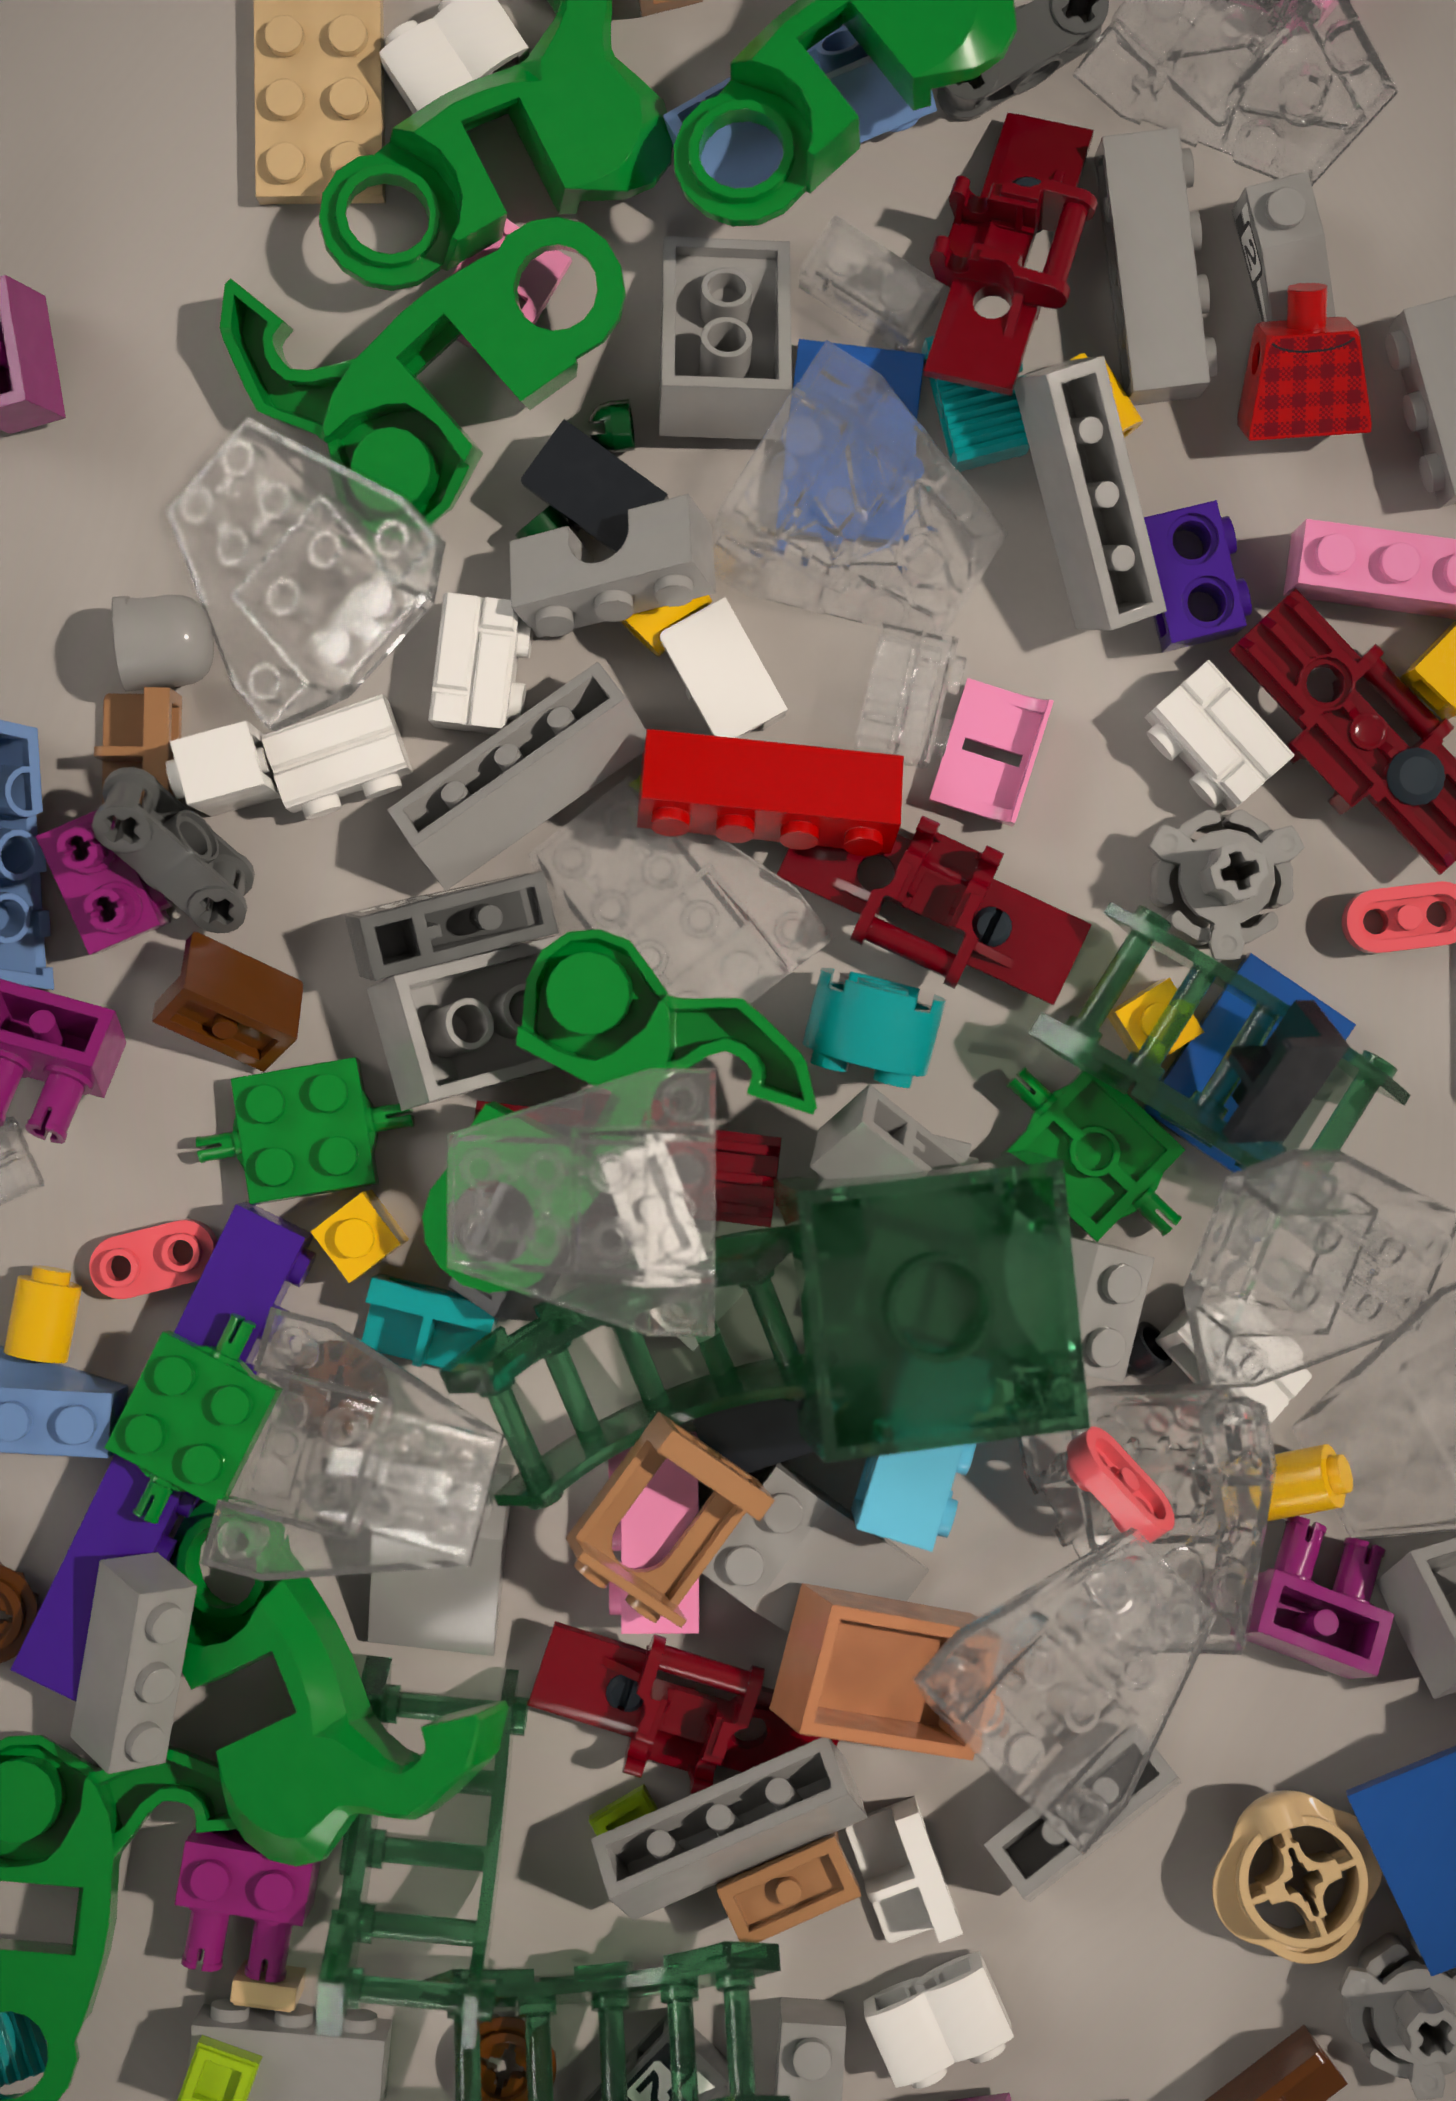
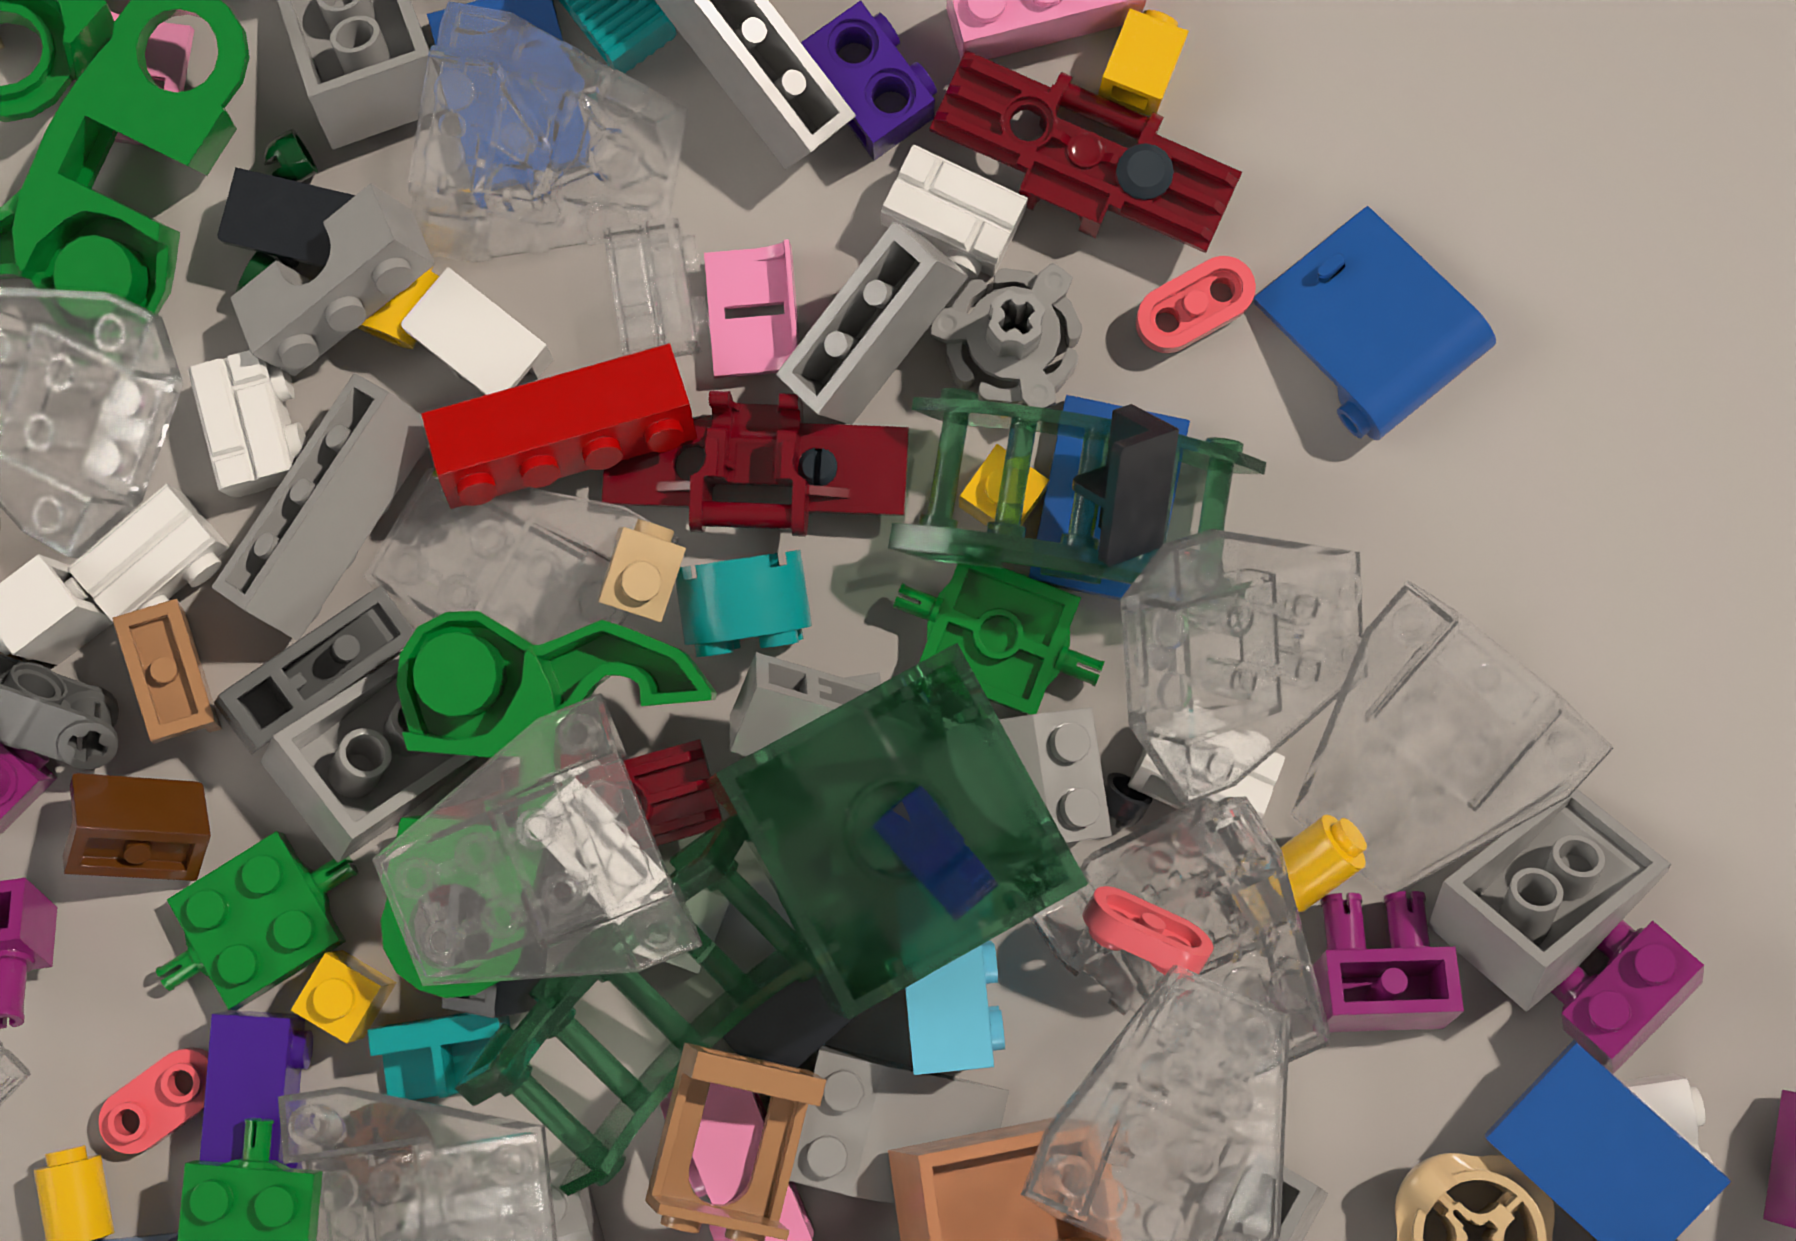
camera: 20 degrees left, 5 degrees down
(314, 870) = (166, 671): none -> medium nougat panel
(794, 963) = (642, 570): none -> tan bracket
(964, 1344) = (934, 853): none -> clear blue leg
(1099, 817) = (871, 324): none -> light grey brick

